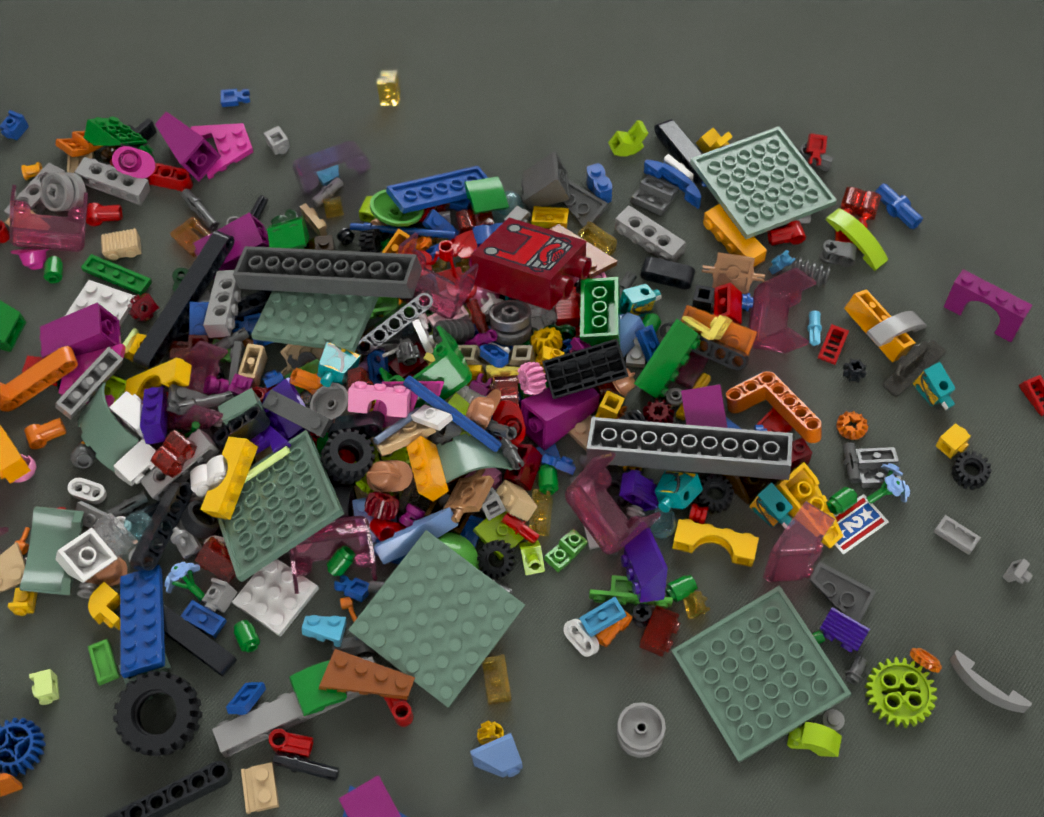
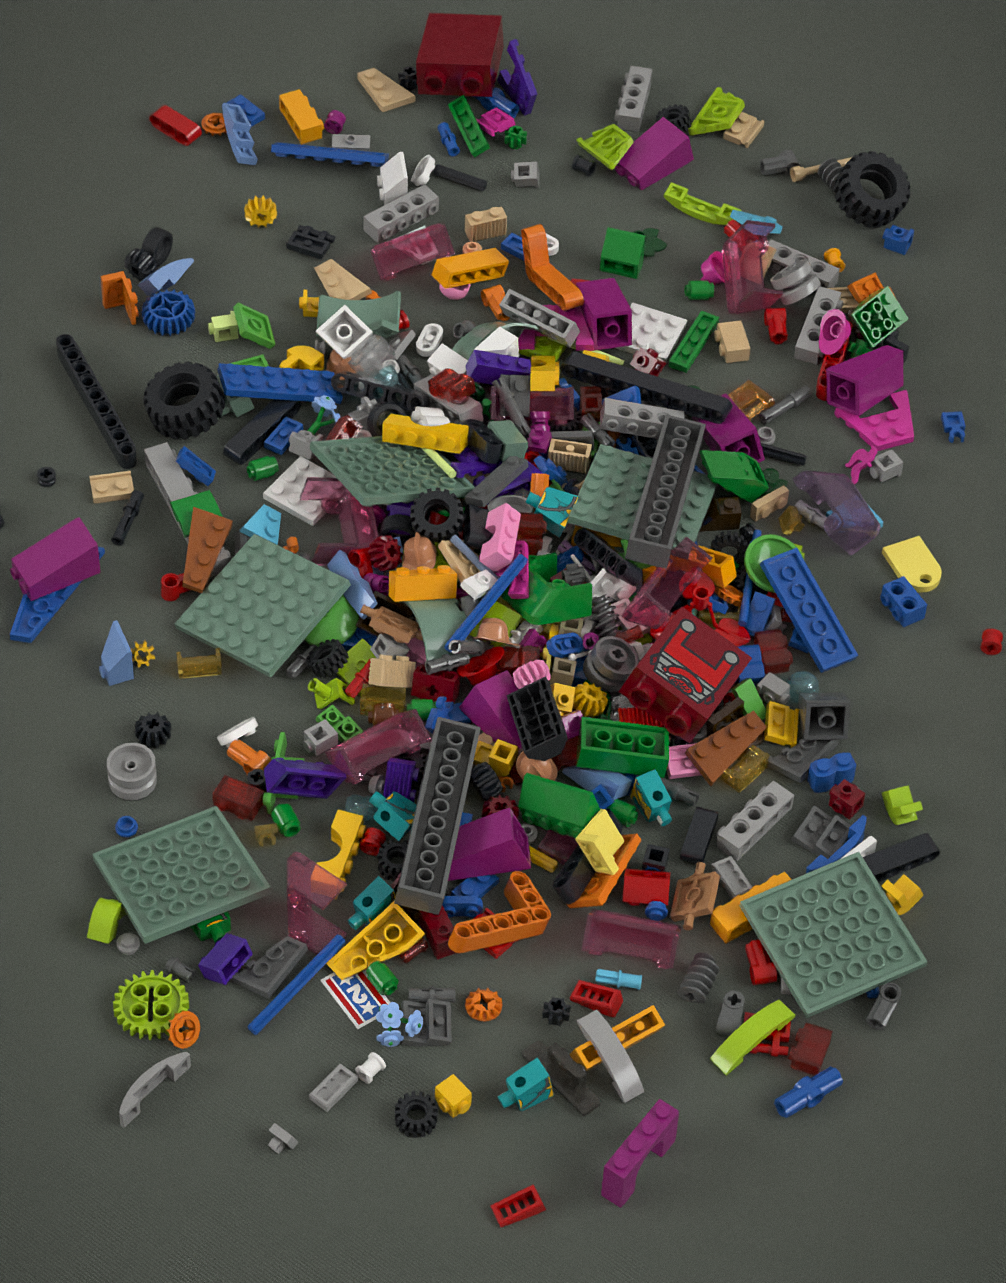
camera: 85 degrees right, 10 degrees down
(51, 654) = (254, 325): none -> bright green plate
(267, 153) = (865, 457): none -> dark pink piece
(293, 743) = (150, 504): red piece -> none
(340, 561) = (335, 534): green brick -> none
(354, 589) = (307, 545): blue plate -> none
(379, 129) = (914, 562): none -> light yellow tile
(389, 88) = (969, 565): clear yellow hinge -> none
(422, 134) = (903, 601): none -> blue brick
(462, 82) = (991, 641): none -> red wheel
(486, 195) = (801, 652): green slope -> none
(559, 510) = (381, 712): none -> reddish brown head
(586, 557) = (320, 738): none -> light grey brick
(591, 720) = (153, 730): none -> black gear
(603, 616) = (252, 740): dark azure plate -> none
(626, 174) = (846, 798): none -> dark red brick
(699, 733) = (126, 826): none -> blue plate
(706, 252) = (731, 877): none -> light grey plate
(780, 262) = (713, 948): dark azure plate -> none
(816, 145) = (889, 994): red plate -> none
(865, 575) = (296, 984): none -> blue axle
(933, 506) = (370, 1068): none -> white bush

